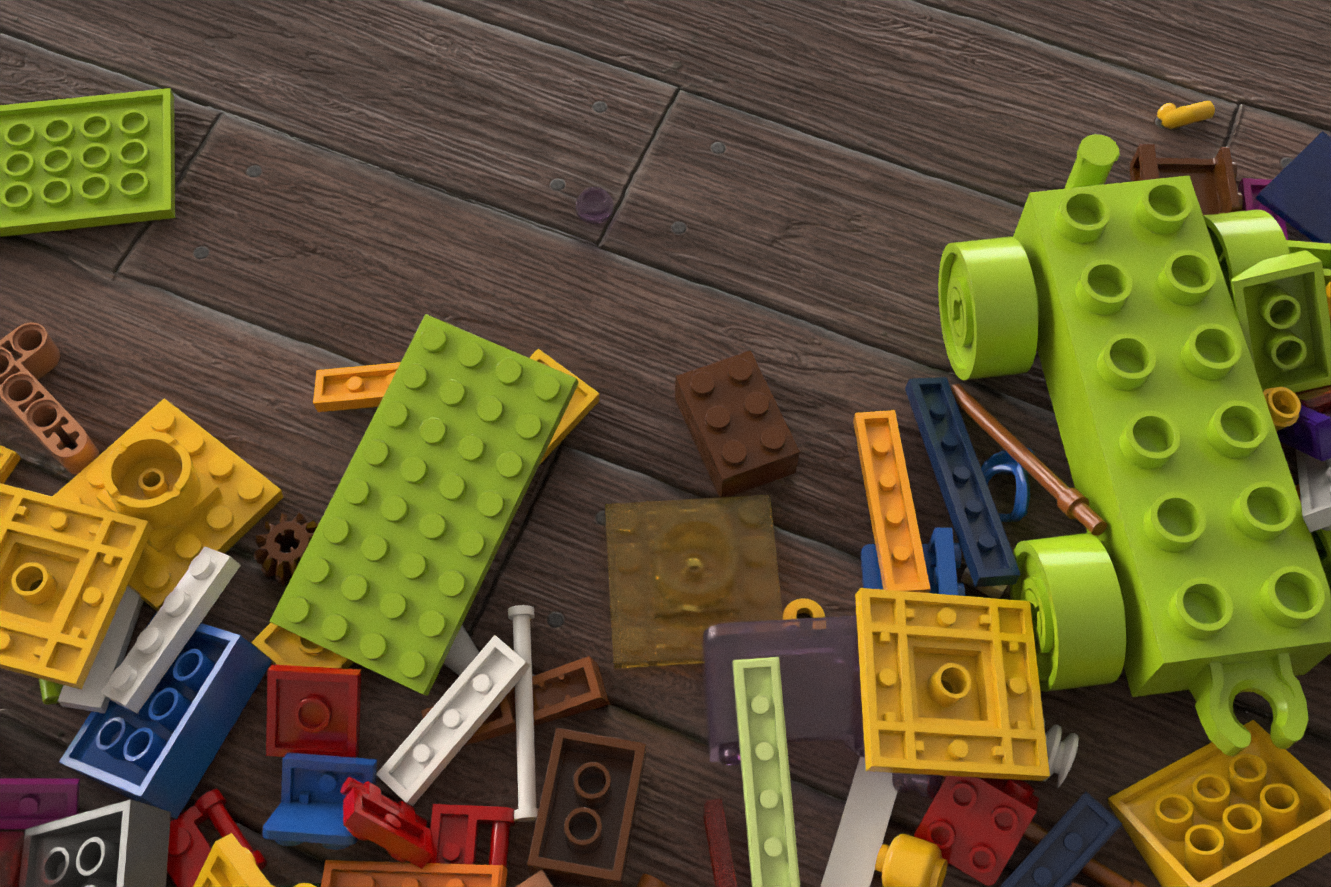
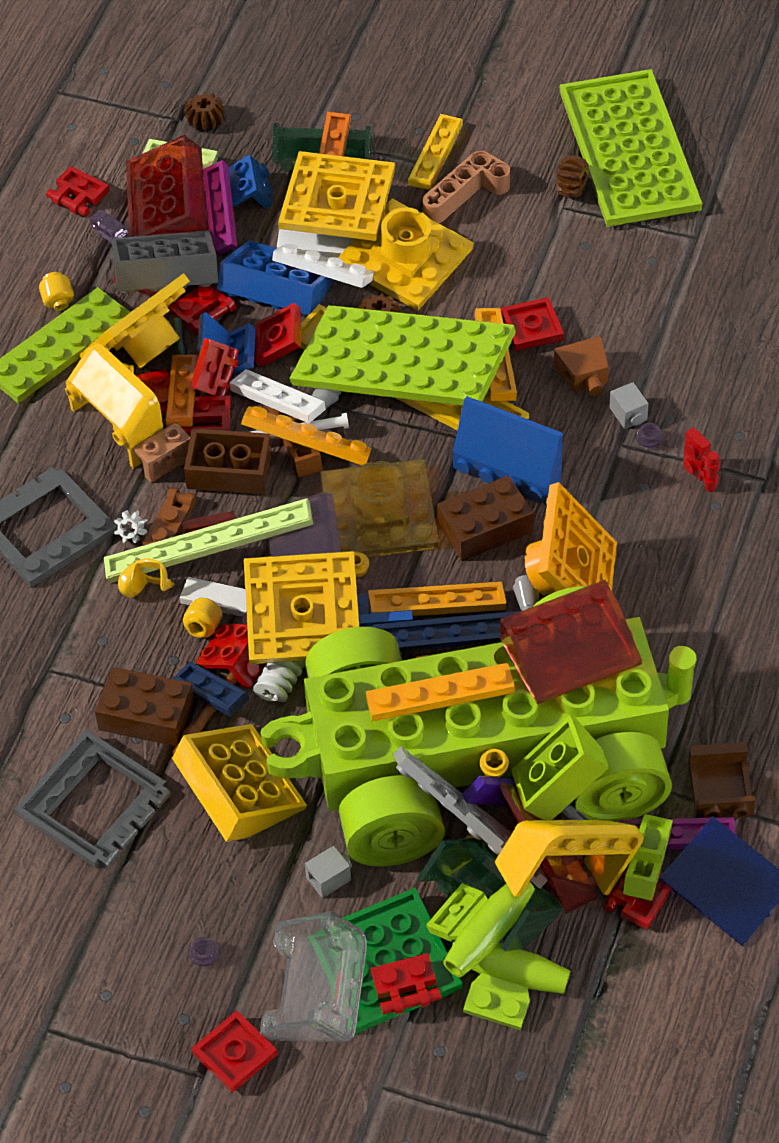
camera: 90 degrees right, 10 degrees down
(70, 241) = (572, 176): none -> reddish brown gear
(355, 330) = (534, 323): none -> red plate
(456, 268) = (583, 365): none -> dark orange torso
(541, 220) = (628, 405): none -> light grey brick
(552, 677) = (306, 435): none -> light orange plate
(634, 372) = (501, 444): none -> blue slope
(663, 134) = (700, 460): none -> red plate
(851, 315) = (572, 549): none -> light orange piece
(875, 383) = (525, 592): none -> light grey cone
(1114, 265) = (569, 642): none -> clear red slope
(1211, 452) = (440, 692): none -> light orange plate

